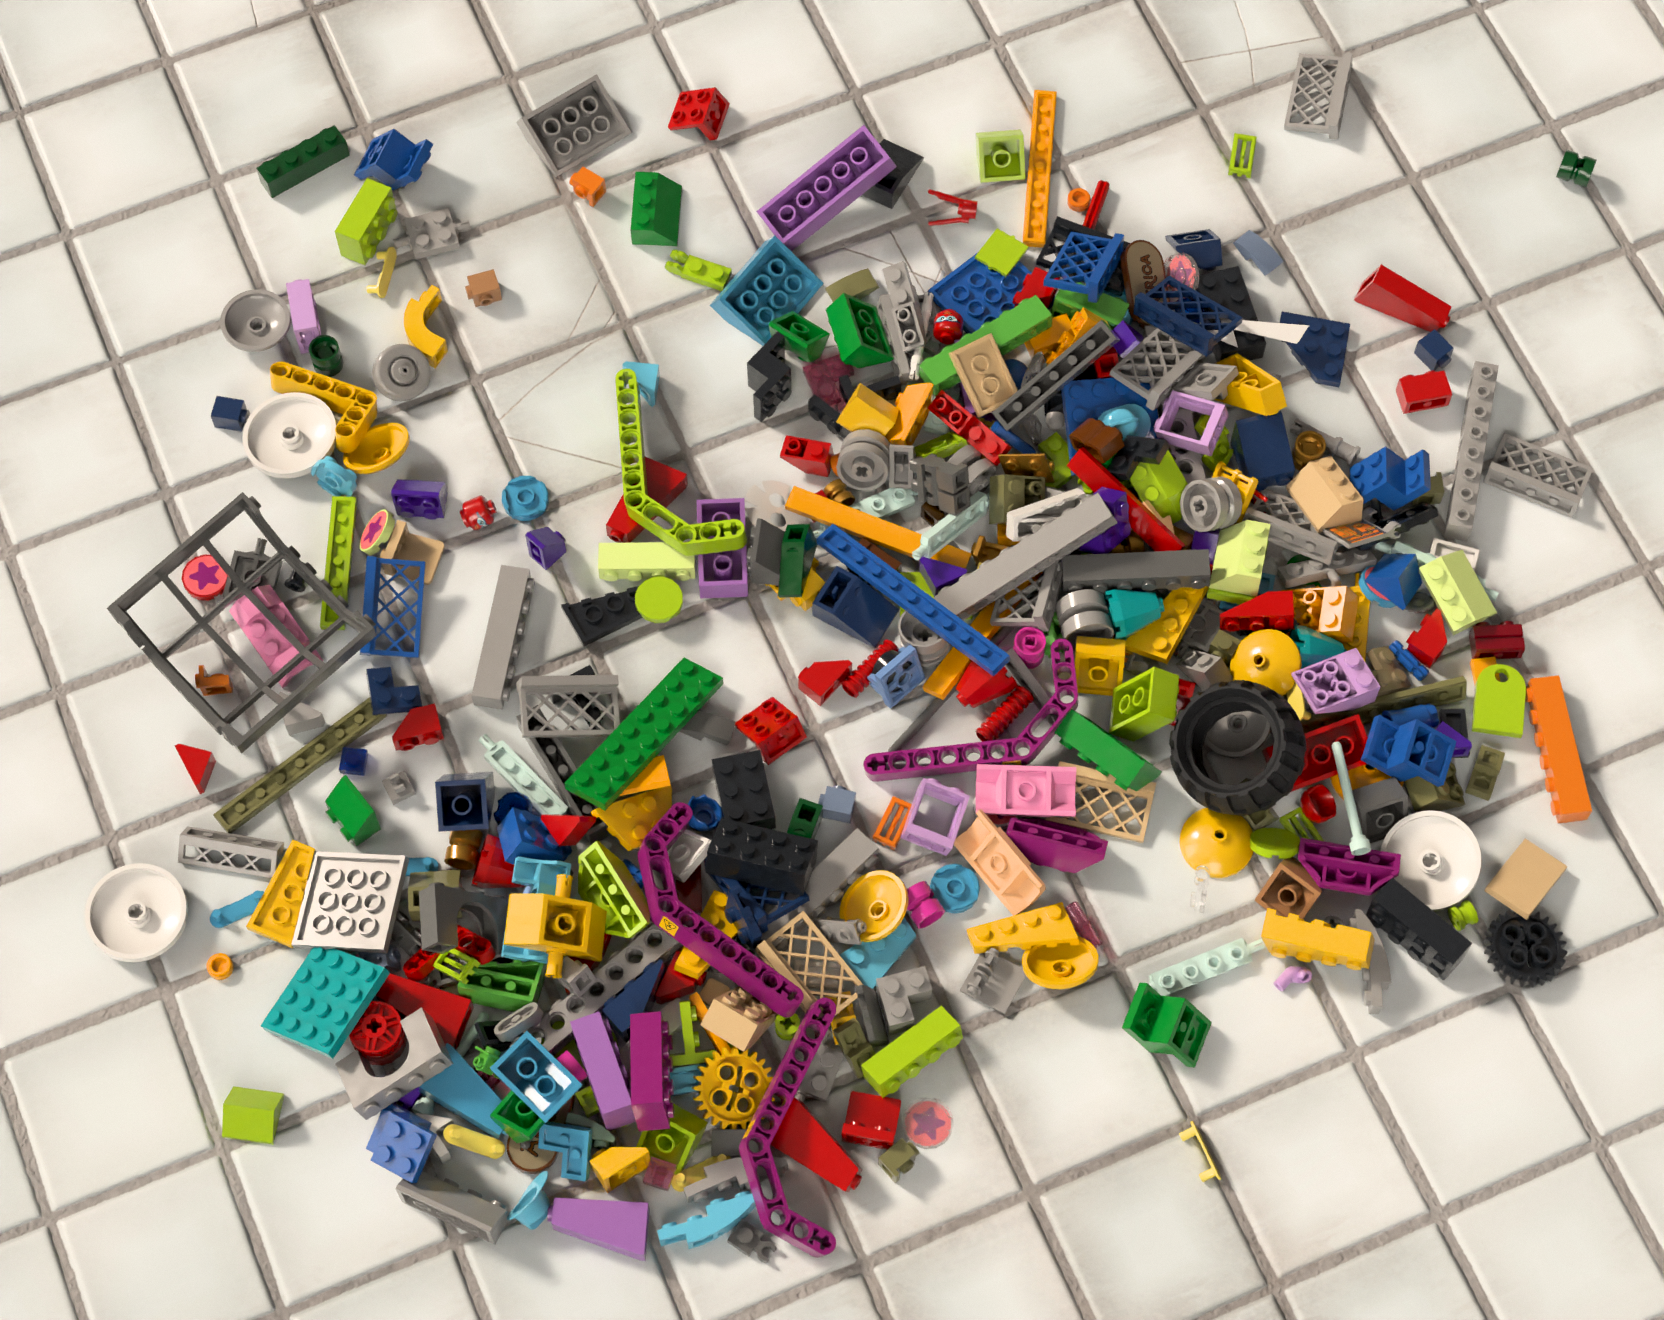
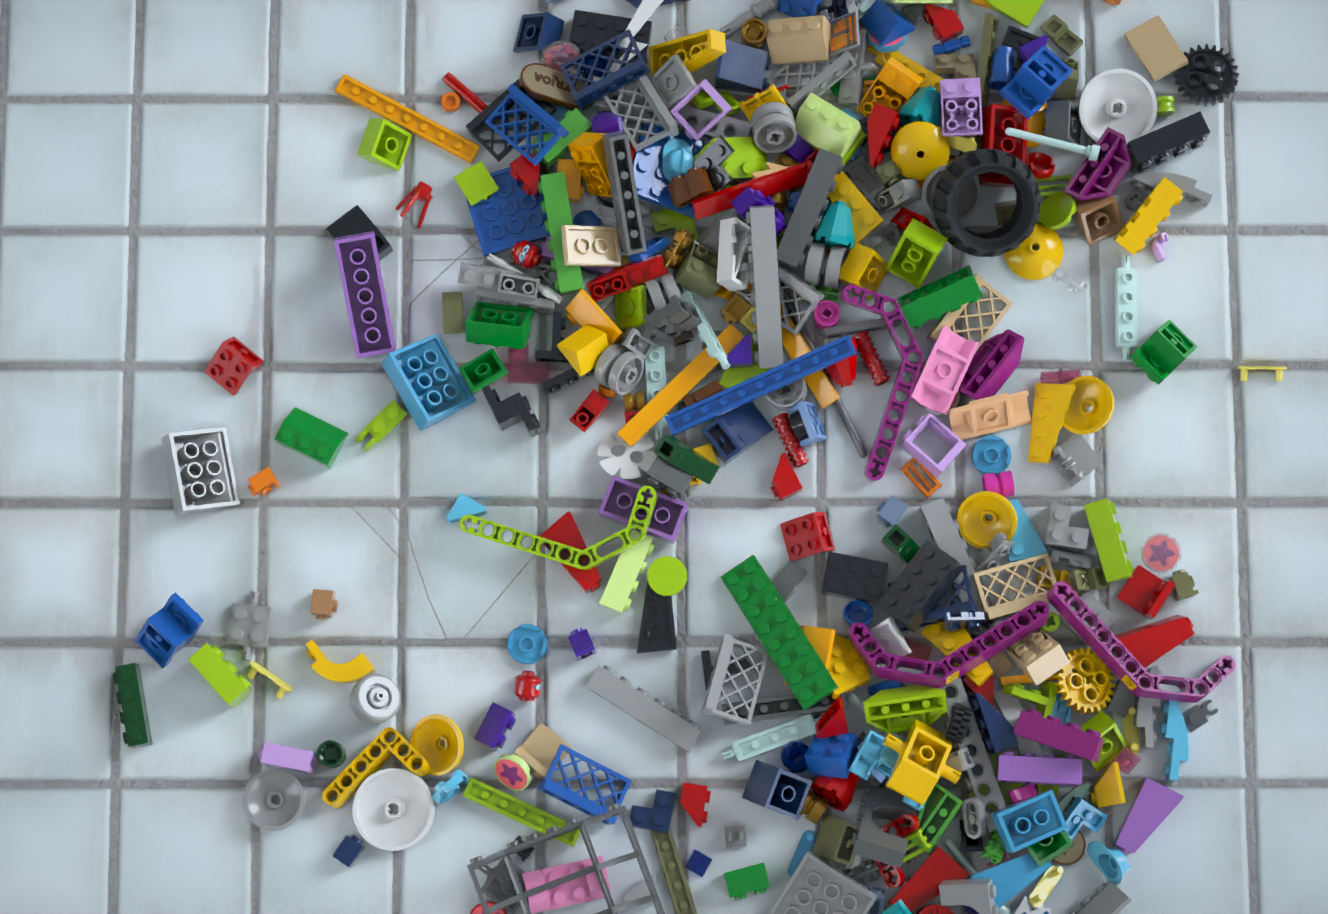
camera: 65 degrees left, 15 degrees up
(617, 954) = (959, 723): none -> black tyre

